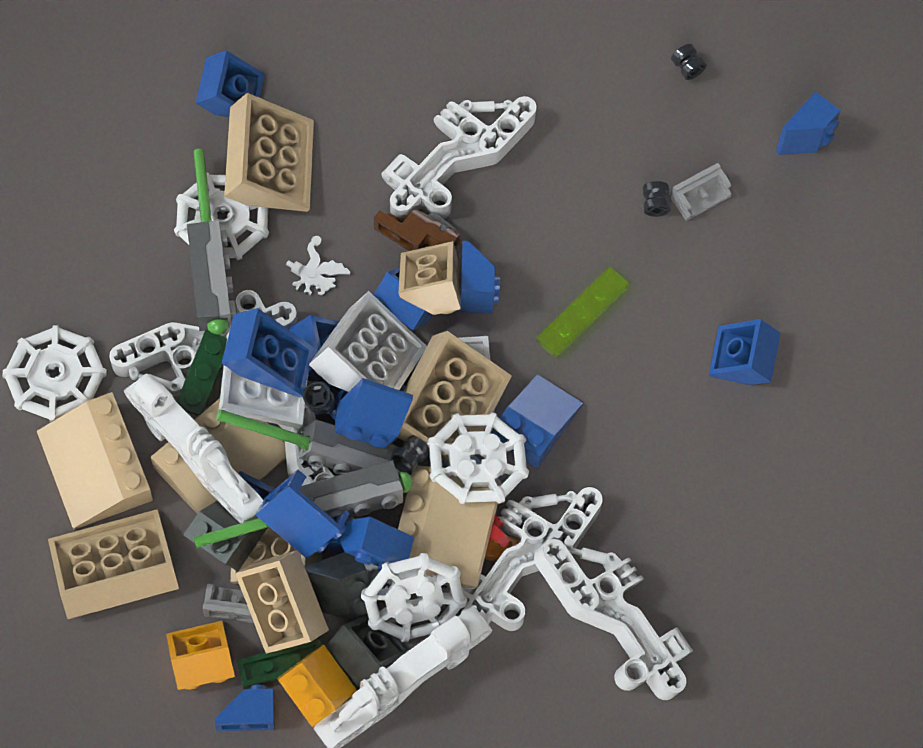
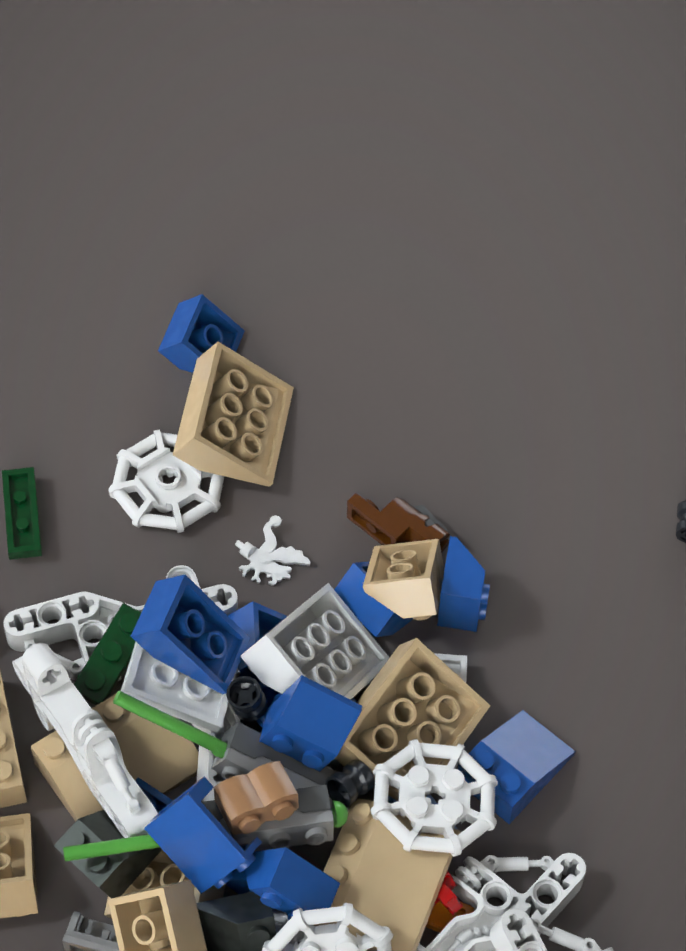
camera: 10 degrees right, 10 degrees down
(105, 260) = (21, 513): none -> dark green plate
(209, 262) = (141, 525): piece -> none
(340, 479) = (256, 798): none -> medium nougat brick
(464, 152) = (415, 470): white beam -> none
(582, 312) = (587, 643): clear neon green tile -> none

